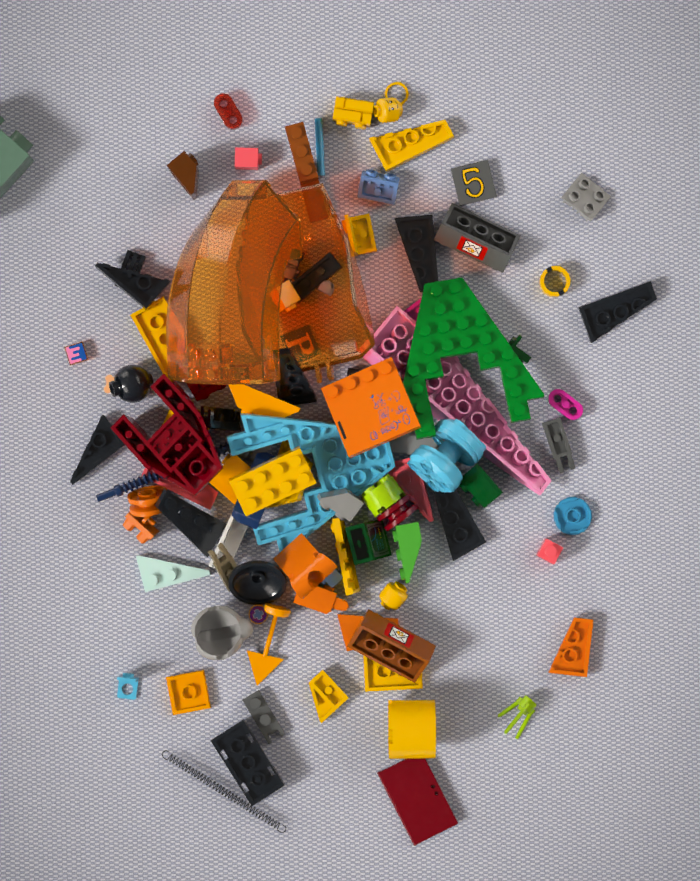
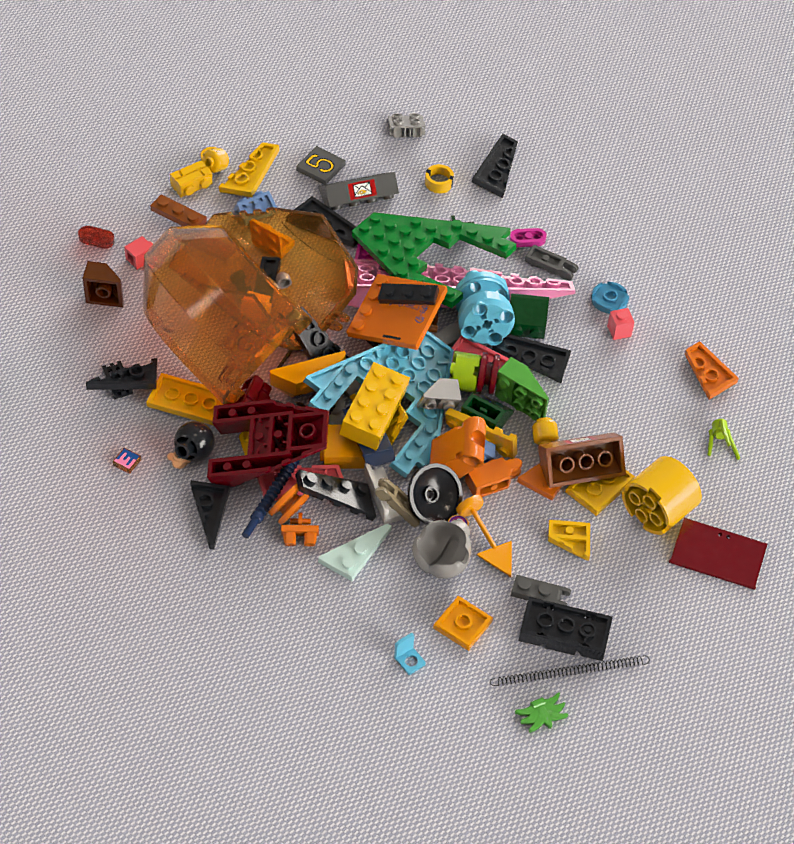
camera: 50 degrees left, 35 degrees down
(176, 803) = (542, 712): none -> bright green piece
(387, 405) = (408, 294): none -> black plate

